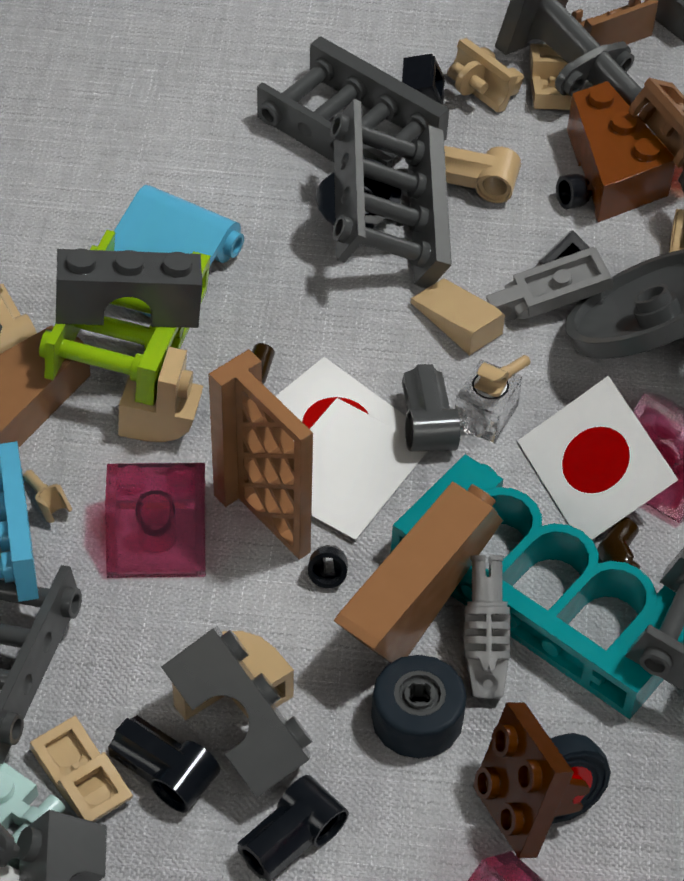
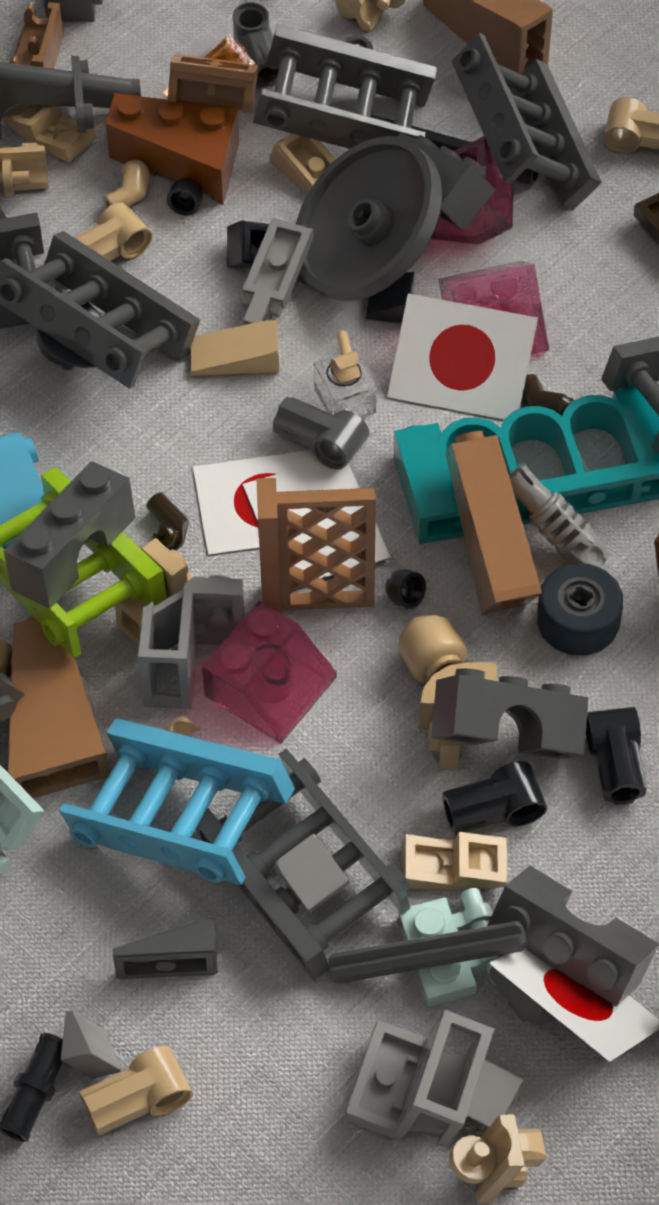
camera: 50 degrees left, 5 degrees up
(124, 429) = (196, 615): none -> light grey piece
(278, 616) = (430, 646): none -> tan head
(549, 156) = (134, 185): none -> tan arm
(627, 377) = (391, 302): none -> black slope

